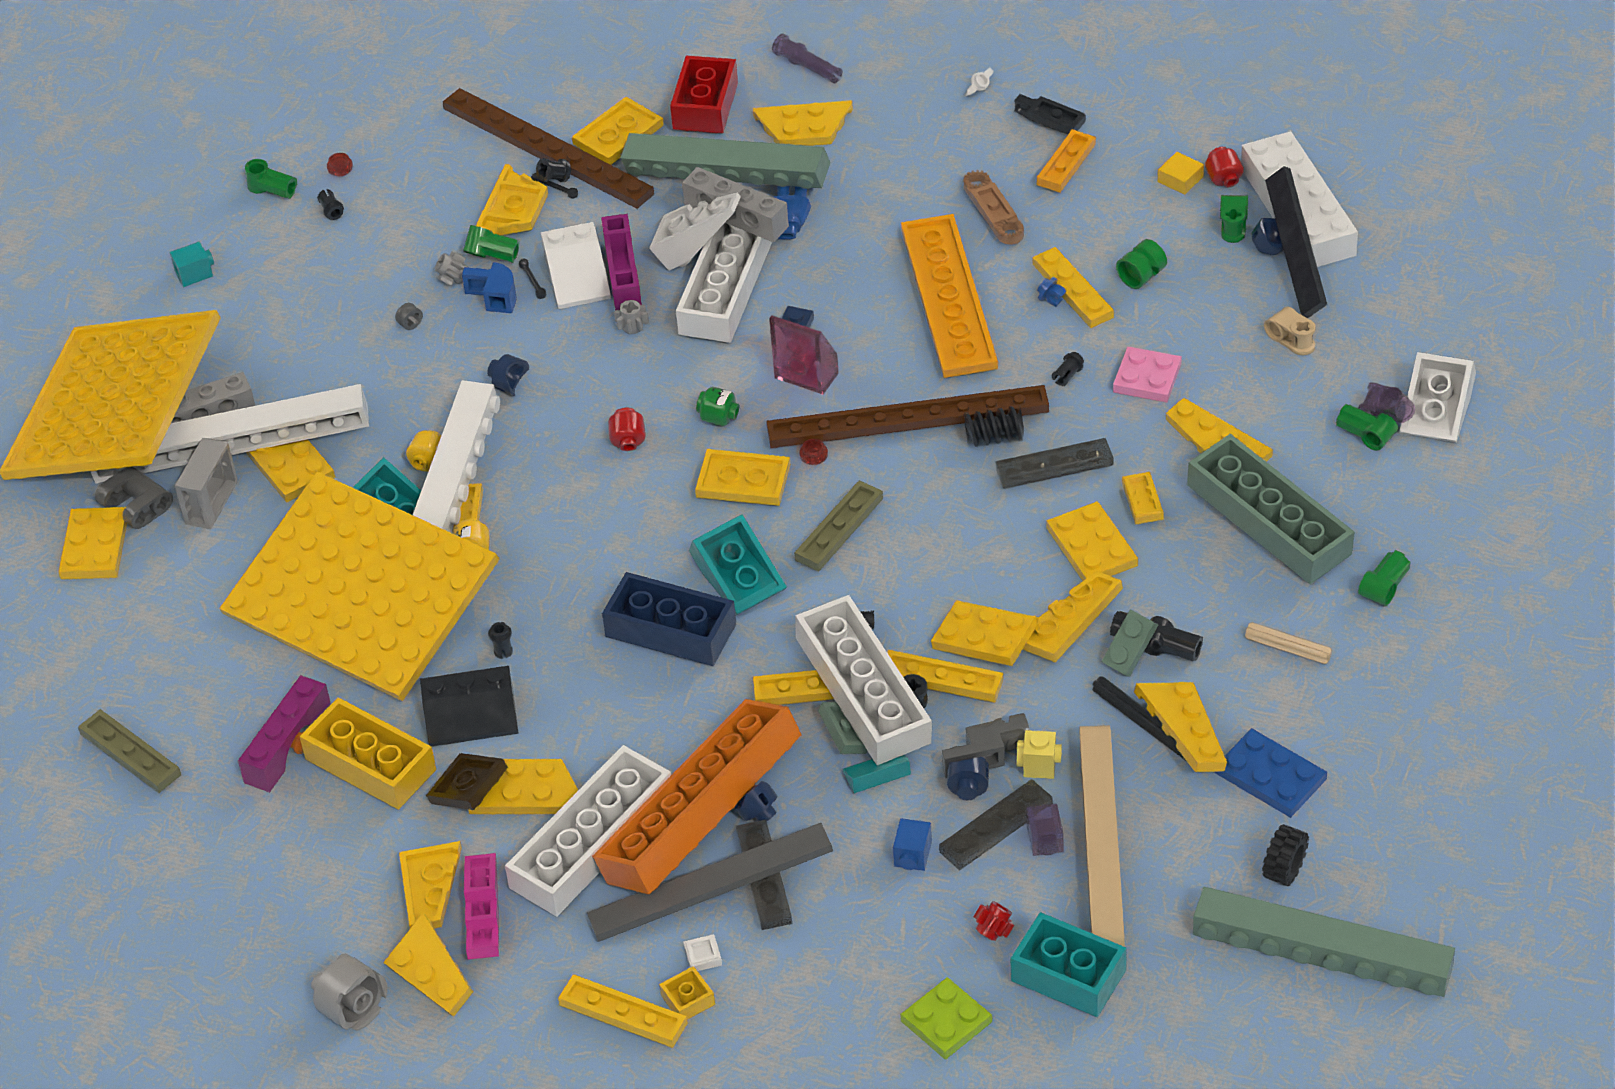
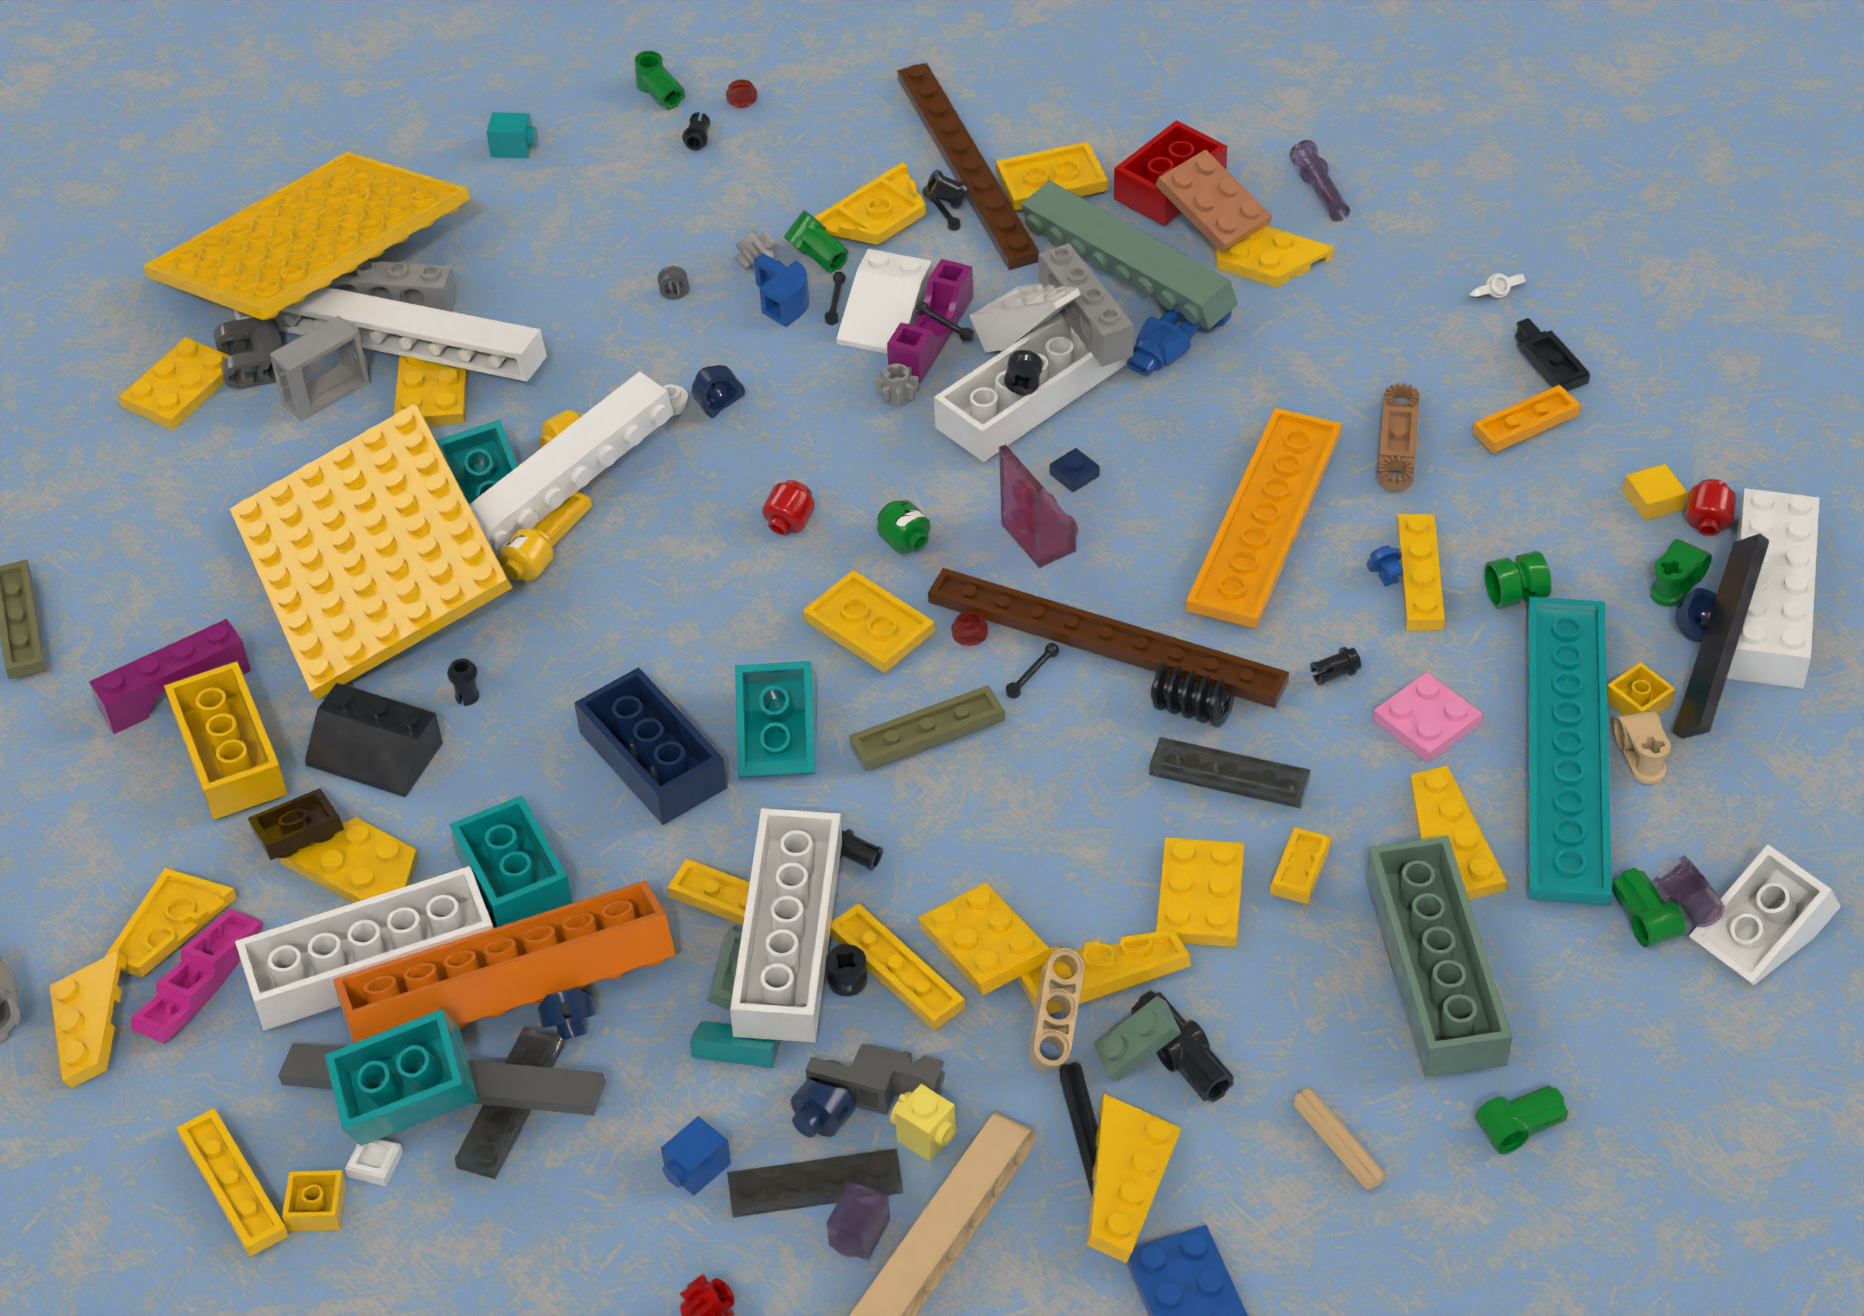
camera: 30 degrees right, 0 degrees up
(643, 727) = (511, 862): none -> teal brick
(653, 261) = (966, 334): none -> black hinge
(696, 887) = (401, 1077): none -> teal brick
(729, 267) = (1023, 372): none -> black wheel
(755, 100) = (1213, 200): none -> nougat plate
(872, 477) = (1013, 689): none -> black hinge
(1071, 636) = (1067, 994): none -> tan beam
(1249, 354) = (1568, 752): none -> teal plate
(1265, 300) = (1640, 691): none -> yellow piece

